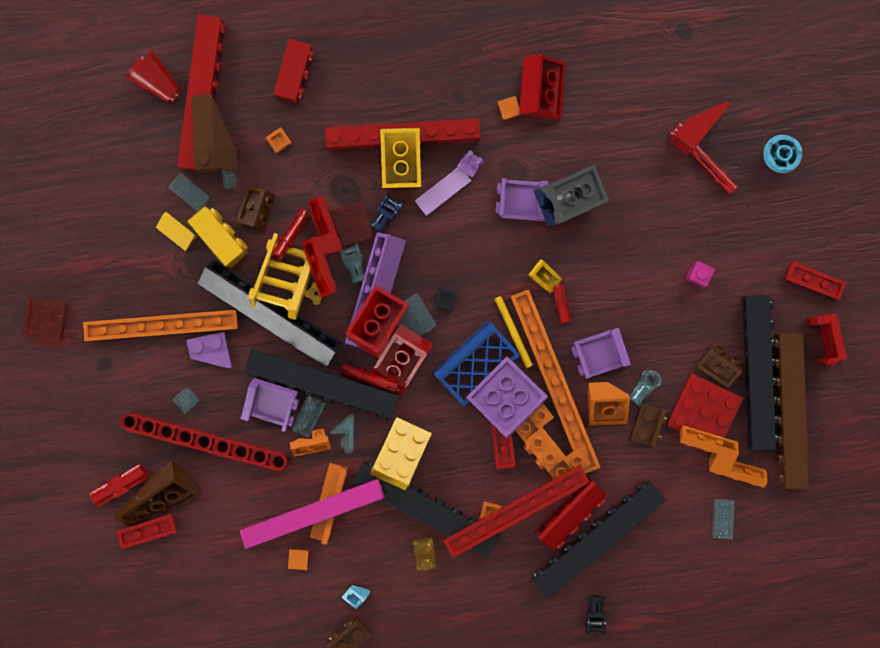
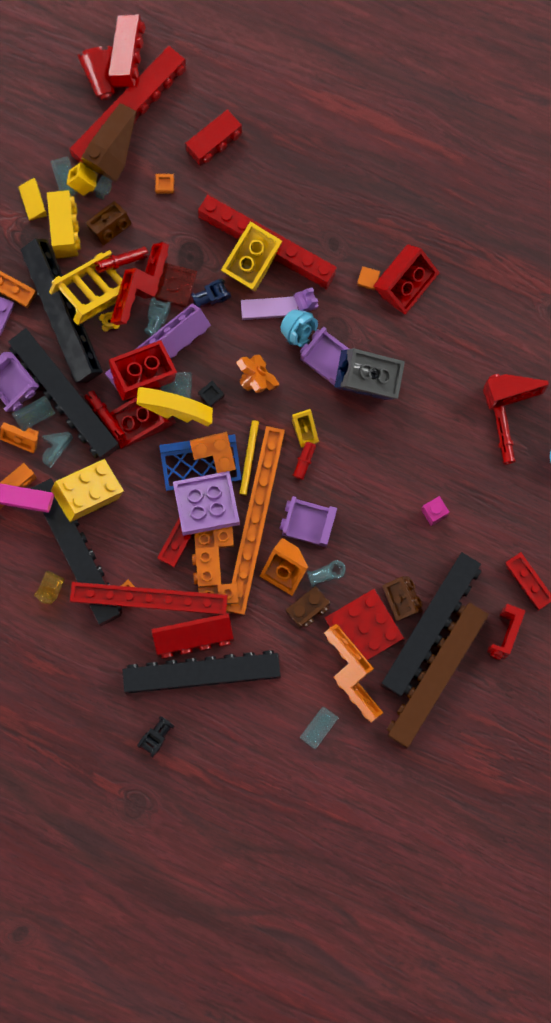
camera: 25 degrees right, 10 degrees down
(164, 44) = (126, 51): none -> brick
(206, 186) = (82, 179): none -> yellow brick
(424, 334) = (171, 404): none -> yellow slope
(473, 259) = (256, 374): none -> orange plant
(480, 192) = (298, 326): none -> medium azure cone
(483, 343) = (216, 446): none -> orange plate

